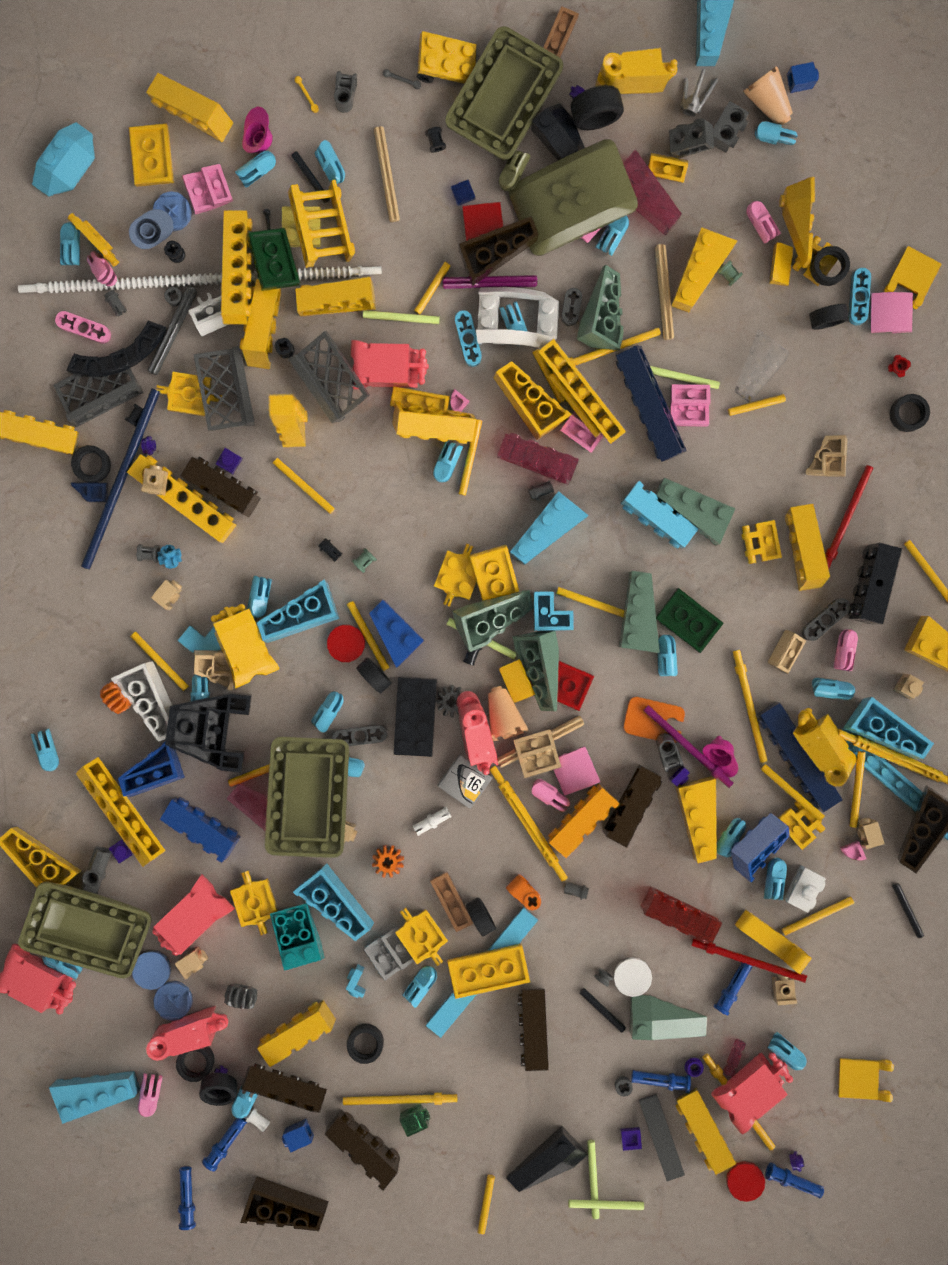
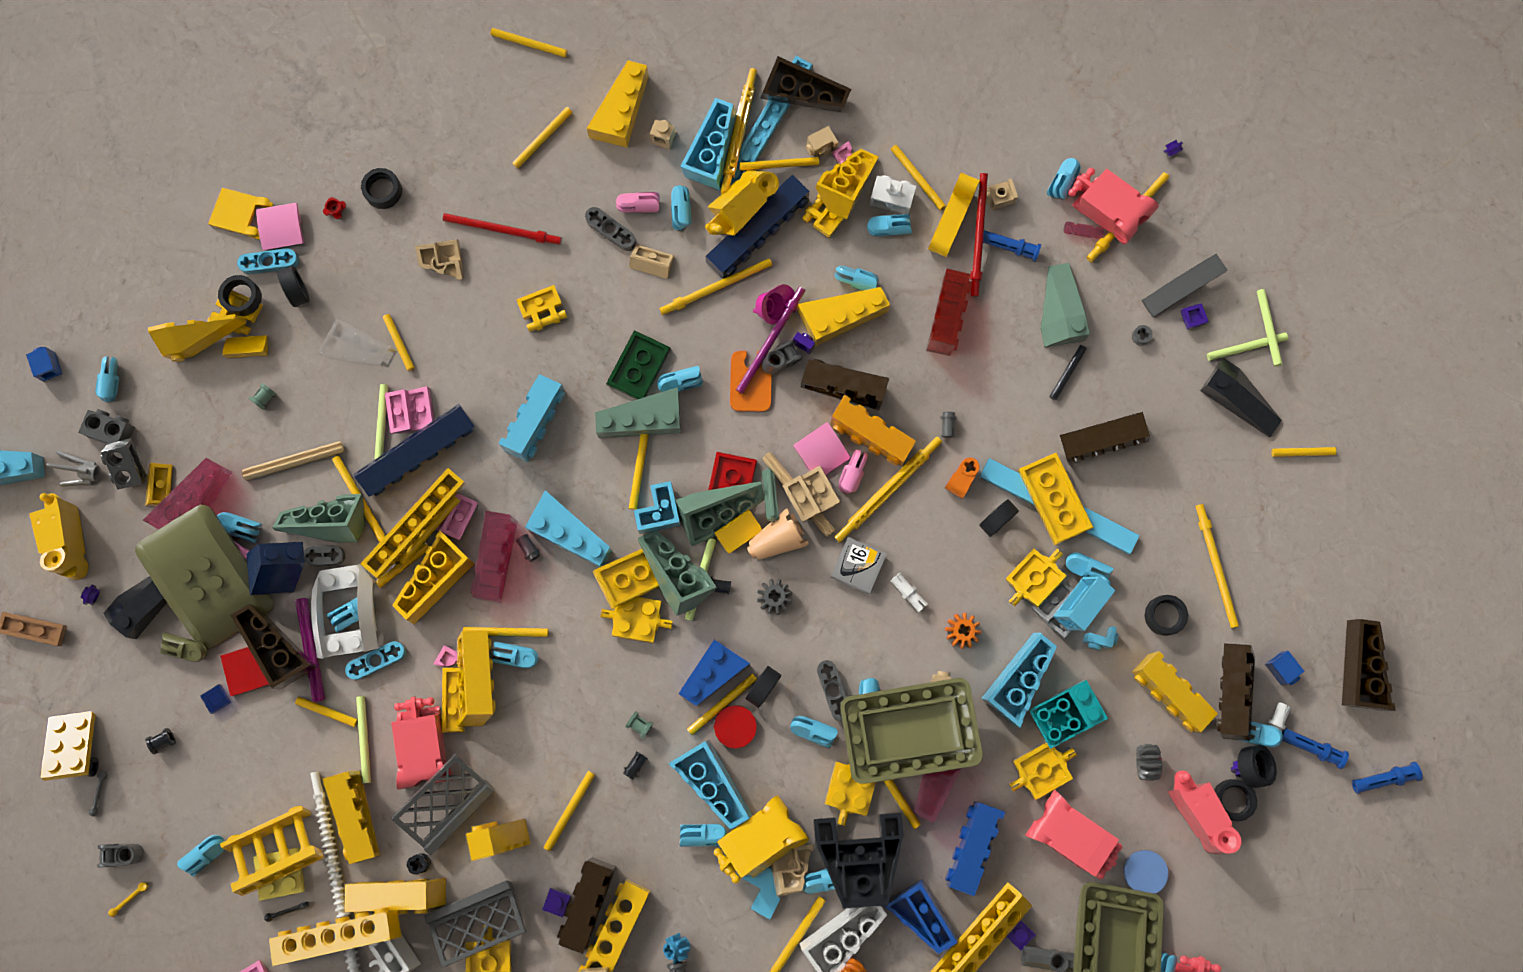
camera: 100 degrees left, 10 degrees down
(90, 1094) = (1303, 915): medium azure wedge -> none
(148, 1098) = (1289, 844): bright pink arm -> none
(167, 594) = (719, 941): tan brick -> none
(173, 1000) = (1173, 840): medium blue tile -> none
(191, 962) = (1125, 827): tan brick -> none
(256, 132) = (177, 947): dark pink piece -> none
(256, 168) = (219, 939): medium azure arm -> none
(268, 727) = (847, 794): none -> yellow plate
(273, 259) = (319, 896): dark green tile -> none
(308, 174) = (207, 889): black bar -> none
(364, 1148) = (1278, 592): dark brown wedge -> none
(386, 174) = (206, 788): tan axle -> none
(388, 975) = (1084, 603): none -> medium azure window
(414, 1119) = (1234, 544): clear green brick -> none
(415, 716) = (799, 632): black brick -> none
(451, 901) = (990, 553): medium nougat plate -> none
(476, 732) = (801, 561): coral piece -> none
(504, 93) = (99, 674): olive wedge -> none
(543, 716) = (770, 495): none -> sand green axle
(566, 261) = (275, 567): none -> dark blue slope
(597, 107) = (102, 569): black tyre -> none
(603, 977) = (1032, 378): dark grey bush -> none
(632, 977) = (1025, 348): white tile -> none
(670, 1081) = (1122, 288): blue pin -> none
(694, 1072) = (1106, 263): dark purple plate -> none
(702, 511) = (520, 371): sand green wedge -> none
(703, 263) = (257, 426): yellow wedge -> none
(706, 1132) = (1166, 242): yellow wedge -> none
(745, 1181) = (1207, 194): red tile -> none
(758, 845) = (857, 248): blue wedge -> none
(762, 221) = (202, 374): bright pink arm -> none
(771, 97) = (68, 391): light nougat cone -> none
(786, 1178) = (1193, 154): blue pin -> none
(792, 792) = (796, 226): yellow bar -> none
(807, 547) = (539, 261): yellow wedge -> none
(823, 845) = (845, 182): none -> yellow wedge
(861, 1079) = (1074, 103): yellow flag -> none
(875, 583) = (563, 186): black brick -> none
(908, 910) = (892, 91): black bar -> none

